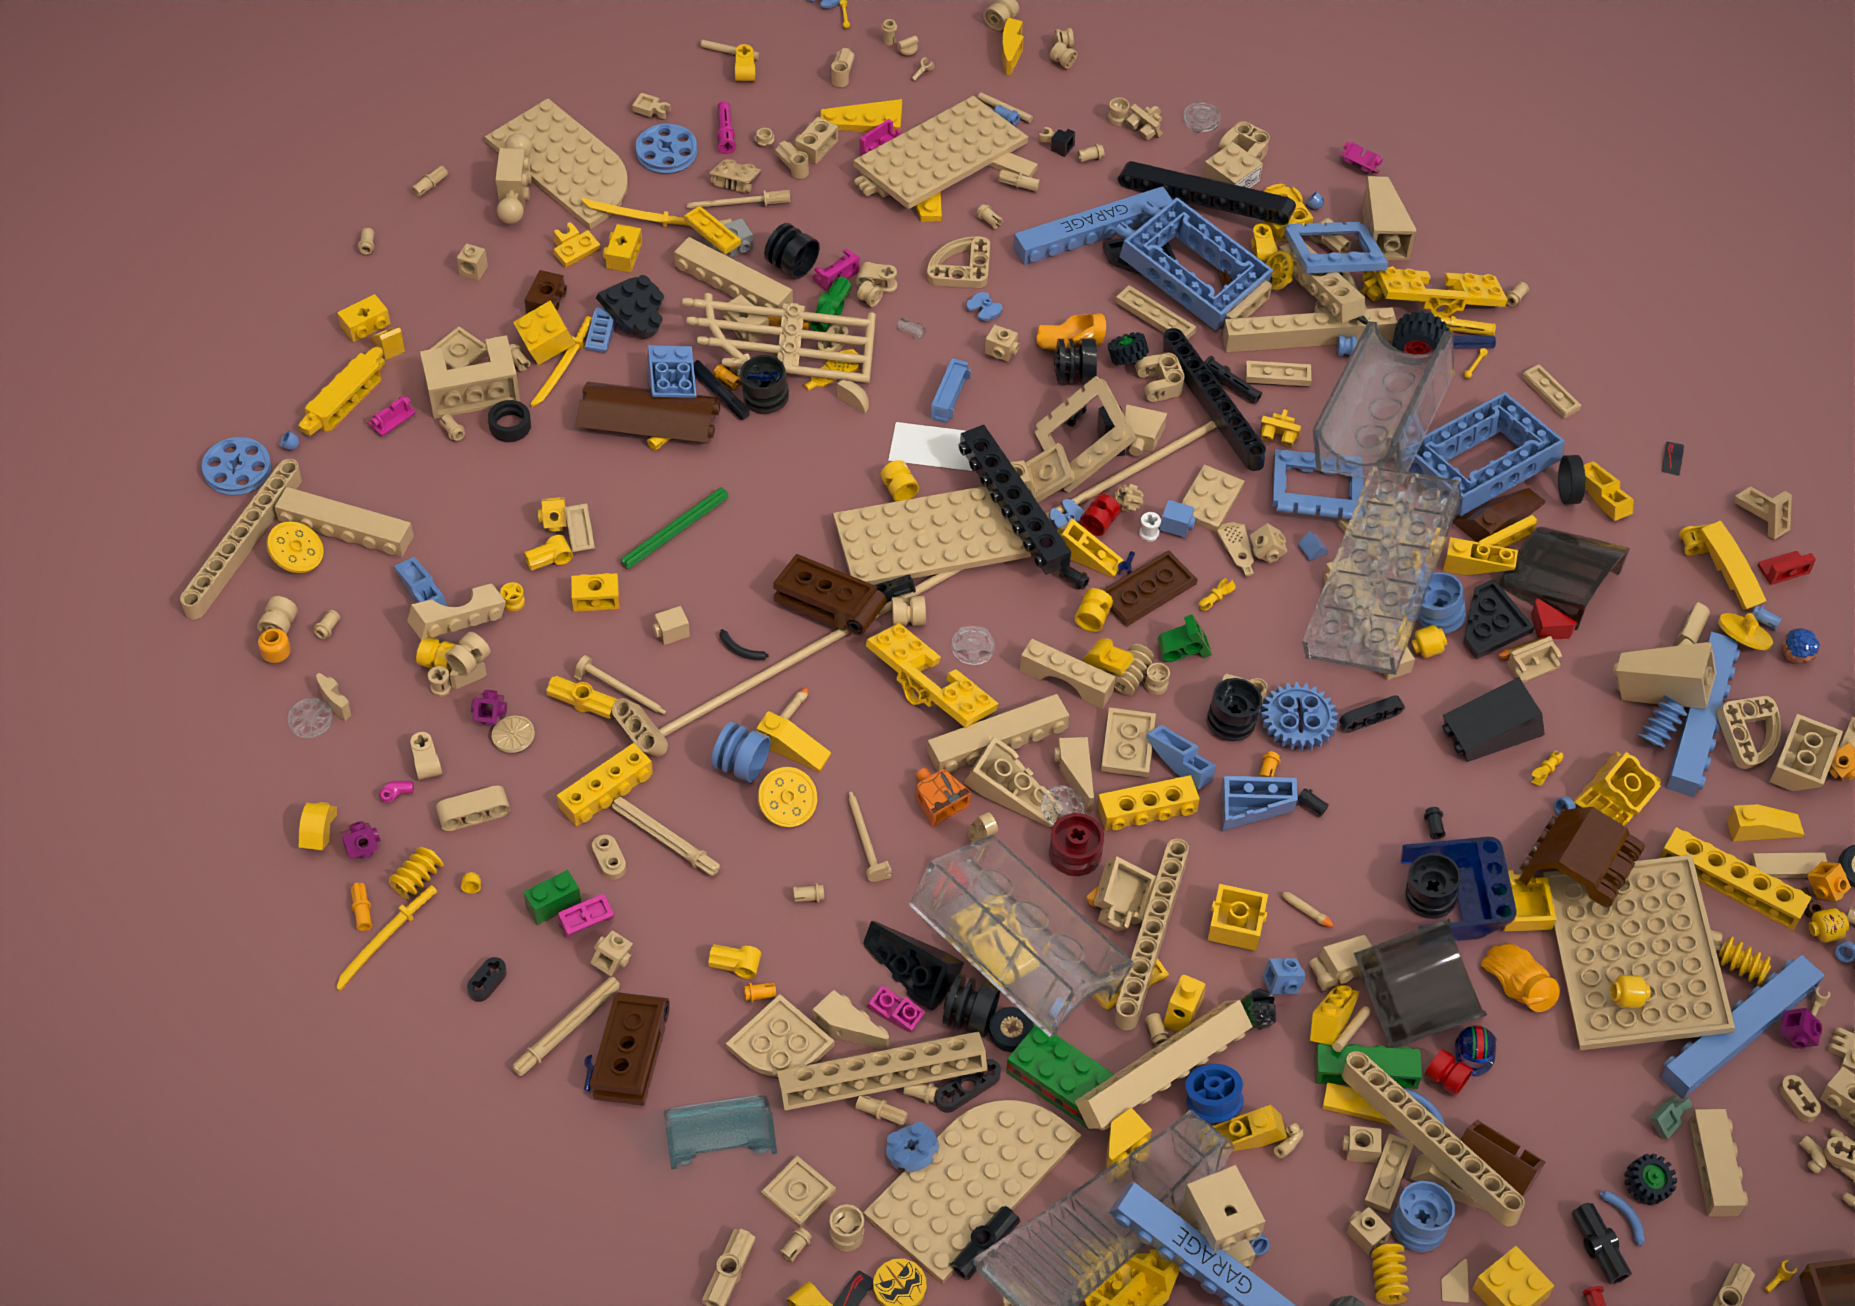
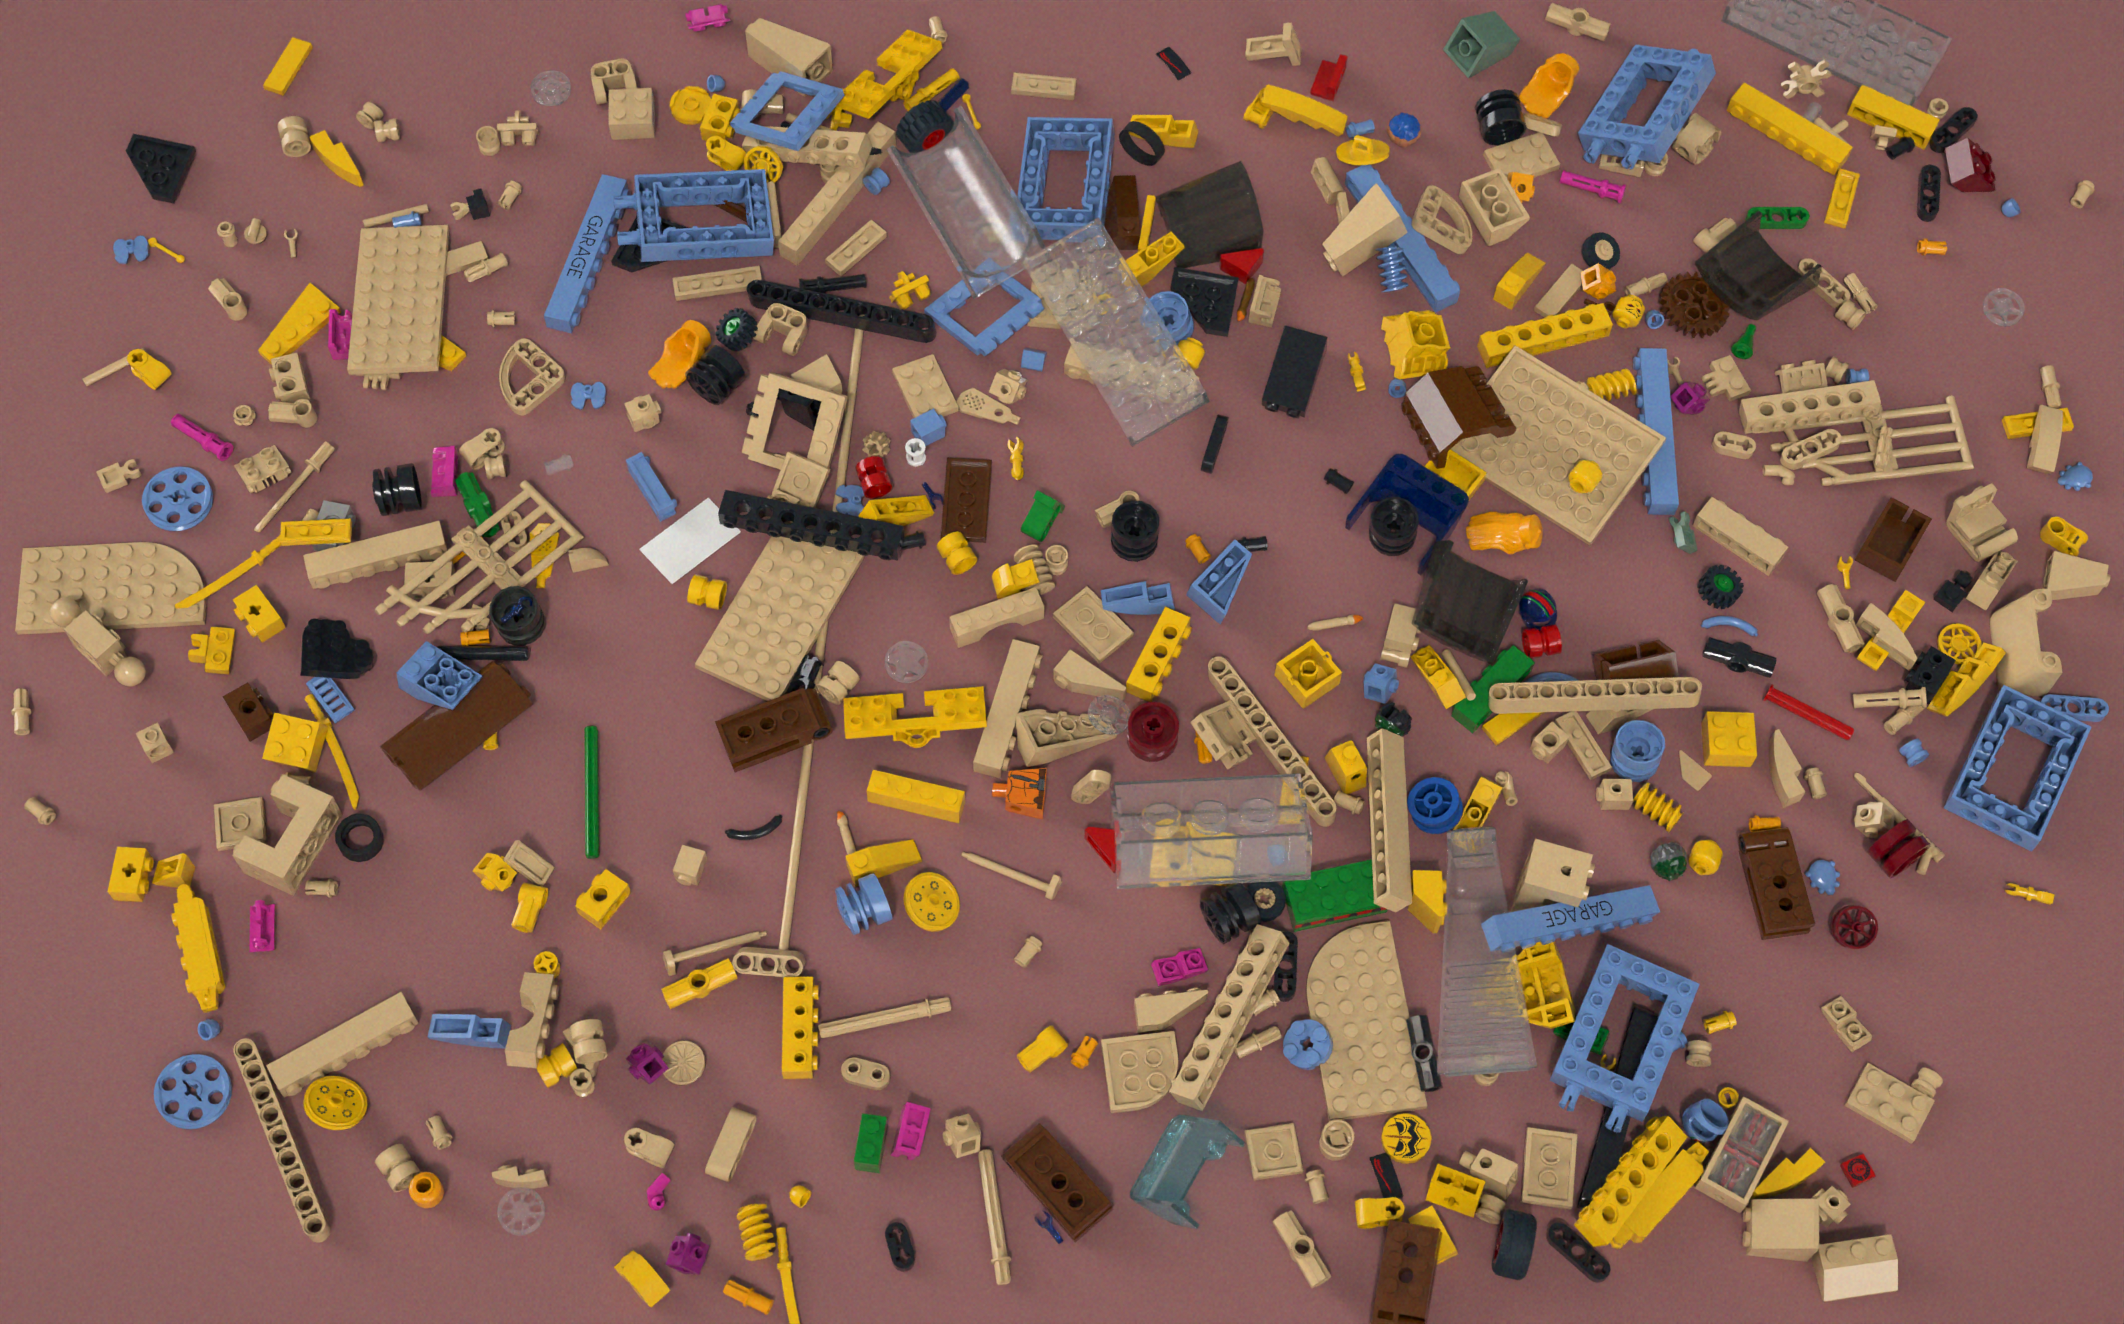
camera: 50 degrees left, 10 degrees up
(865, 726) = (916, 796): none -> yellow brick
(918, 966) = (1158, 923): black wedge -> none
(1208, 192) = (639, 149): black beam -> none
(1320, 716) = (1175, 492): medium blue gear -> none

